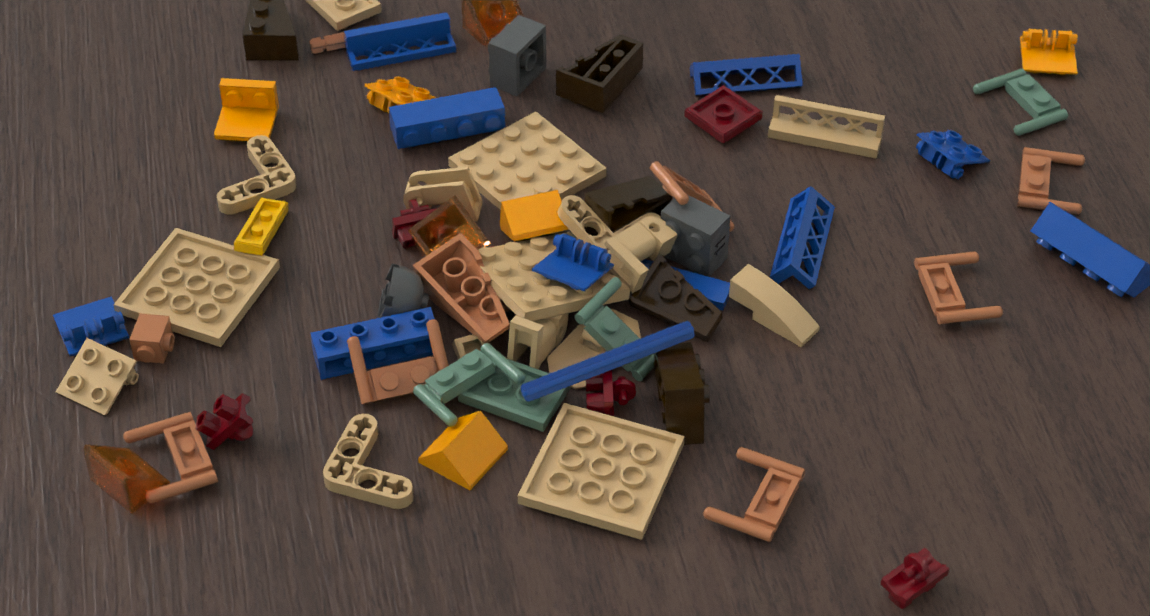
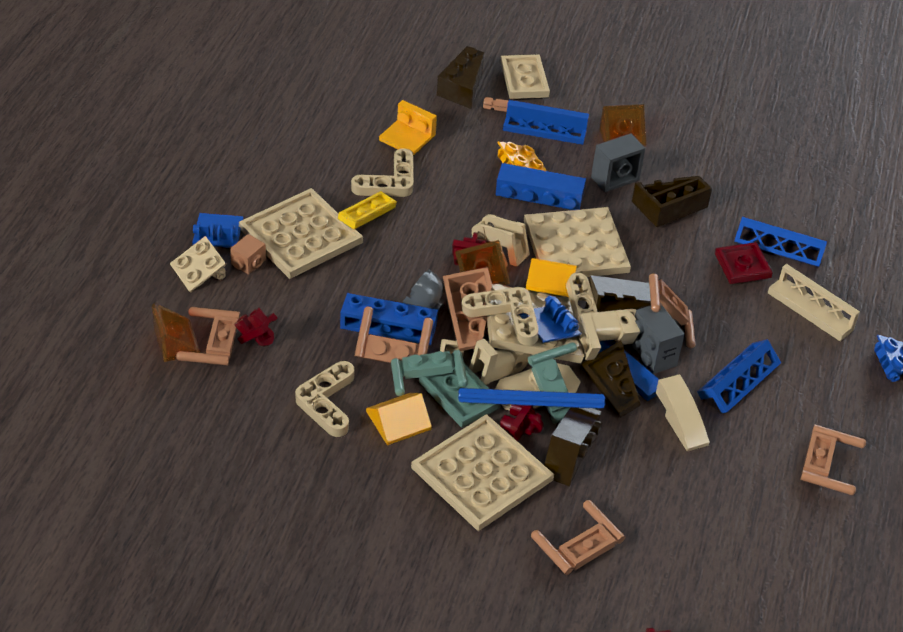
camera: 25 degrees right, 0 degrees up
(519, 264) = (509, 304): none -> tan beam

